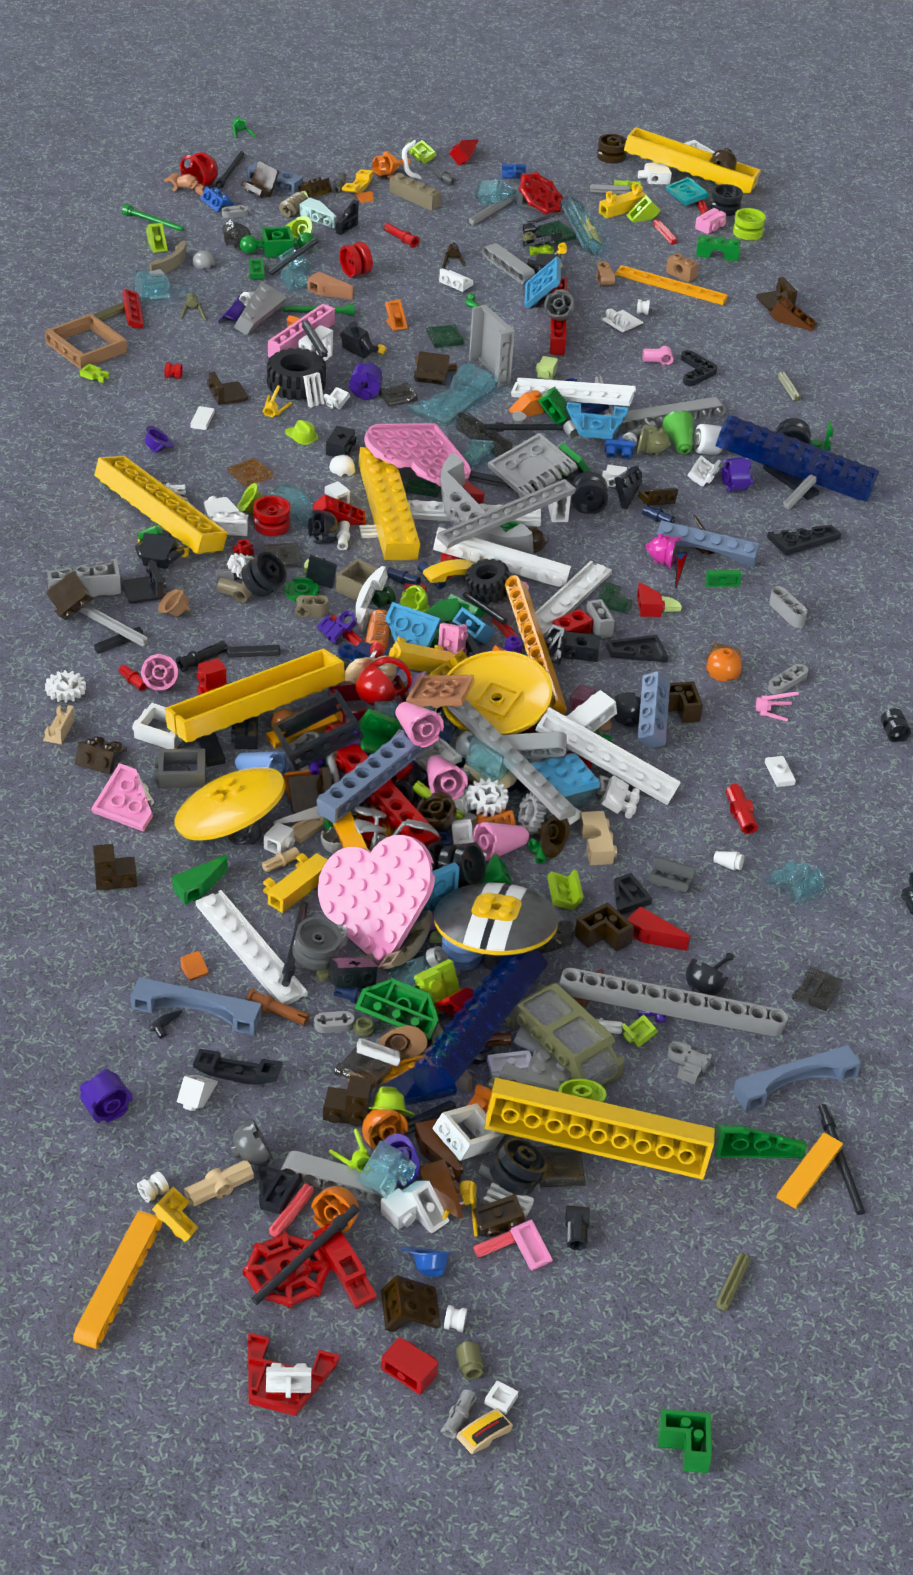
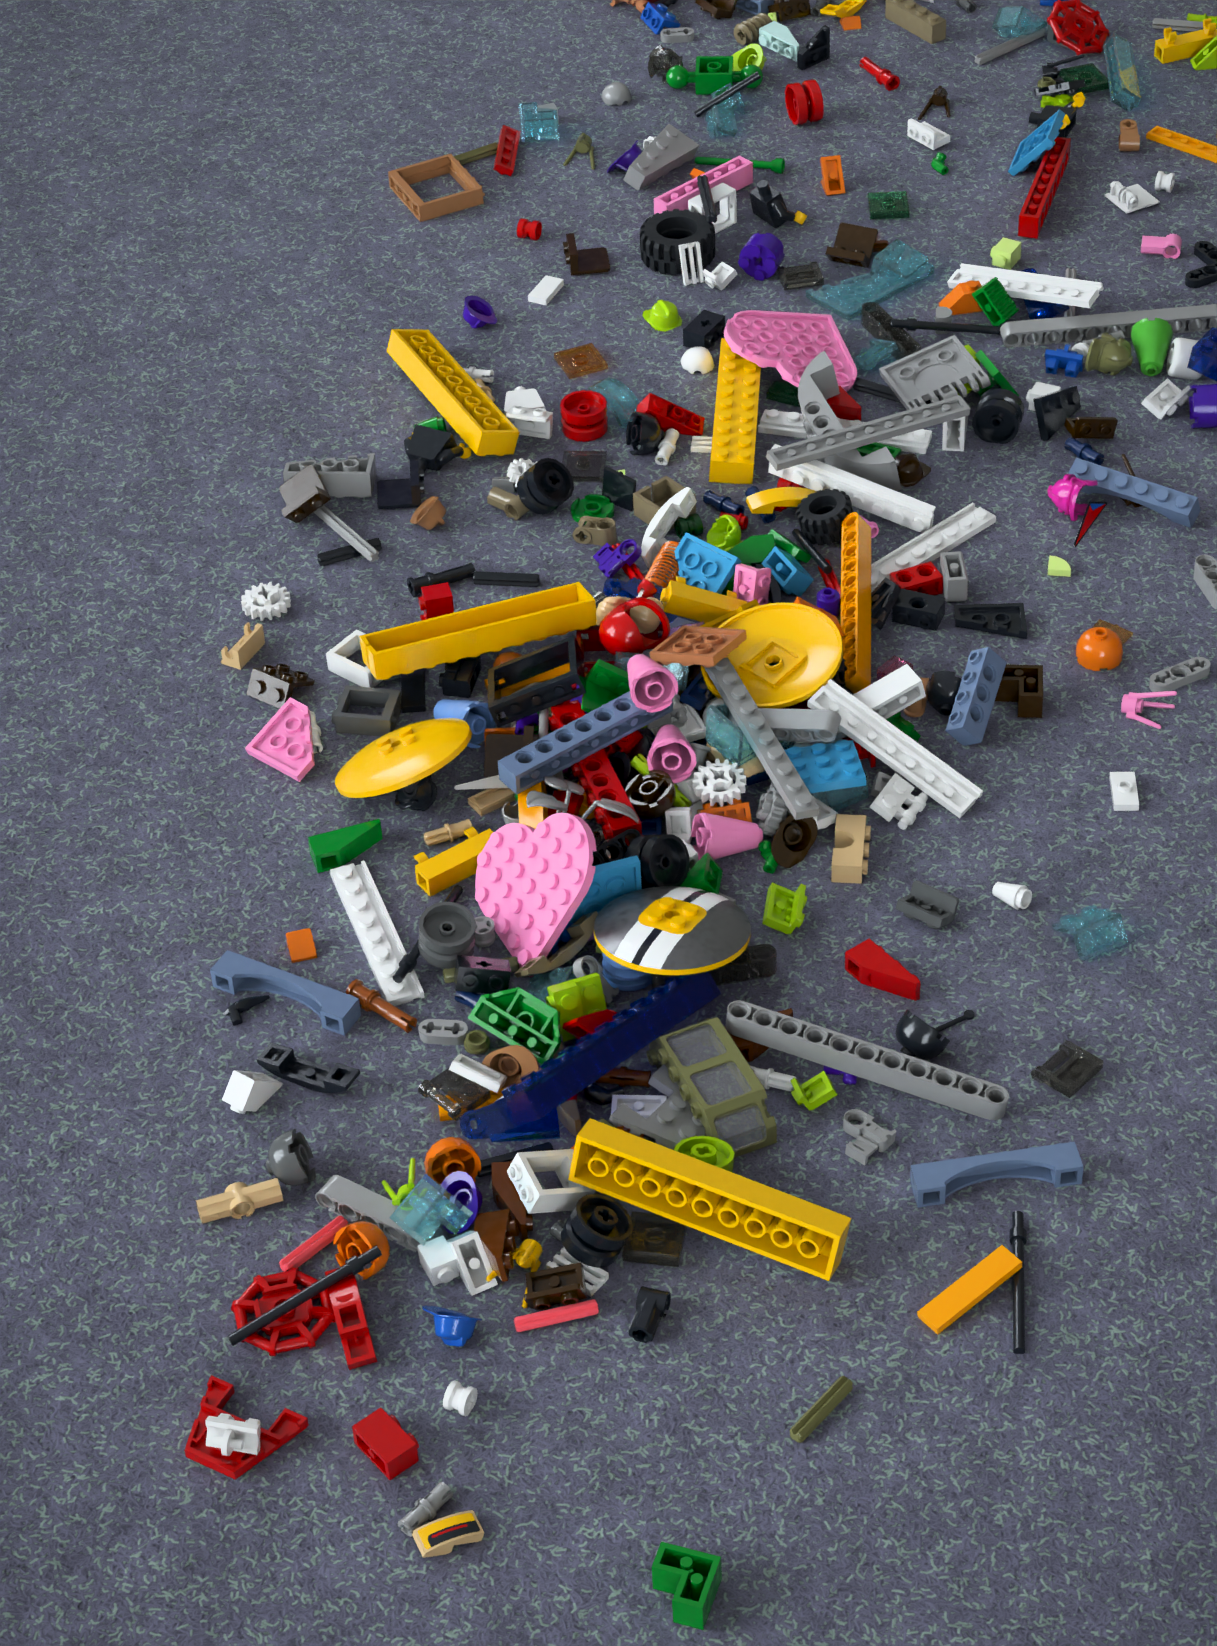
camera: 20 degrees right, 0 degrees up
(93, 372) = (431, 225): lime plate -> none
(105, 1096) = (140, 1082): dark purple brick -> none
(112, 871) = (240, 824): dark brown brick -> none
(116, 1279) = (84, 1291): light orange beam -> none
(129, 210) = (545, 27): green piece -> none
(132, 677) = (350, 598): red axle -> none
(152, 1187) = (156, 1197): white wheel -> none
(156, 237) = (566, 63): lime slope -> none
(159, 672) = (378, 594): bright pink cylinder -> none
(170, 1210) = (169, 1225): yellow plate -> none
(171, 261) = (575, 93): dark tan slope -> none
(243, 546) = (536, 452): red gear -> none
(249, 498) = (566, 388): lime piece -> none
(256, 269) = (678, 108): green plate -> none
(271, 407) = (635, 282): yellow plant -> none
(276, 1188) = (304, 1217): black wing -> none
(279, 838) = (453, 806): white brick -> none
(328, 286) = (761, 134): nougat slope -> none
(338, 491) = (677, 393): white brick -> none
(349, 1104) = (421, 1127): dark brown brick -> none
(390, 1099) = (468, 1129): lime piece -> none
(411, 1301) = (415, 1371): dark brown bracket -> none
(470, 1360) = (459, 1449): olive brick -> none
(492, 343) = (933, 217): light grey panel -> none
(501, 1397) = (482, 1498): white plate -> none
(508, 263) = (1004, 115): light grey beam -> none
(531, 1245) = (583, 1326): bright pink tile -> none
(560, 305) = (1040, 173): dark grey cylinder -> none
(596, 425) = (1041, 330): dark azure wing -> none
(604, 924) = (816, 955): dark brown brick -> none
(609, 594) = (982, 555): clear green plate -> none
(629, 894) = (866, 922): black wing -> none
(649, 601) = (1029, 561): red slope -> none
(723, 578) = (1139, 538): green plate -> none
(741, 809) = (1052, 833): red piece -> none
(748, 1142) = (901, 1244): green wedge -> none

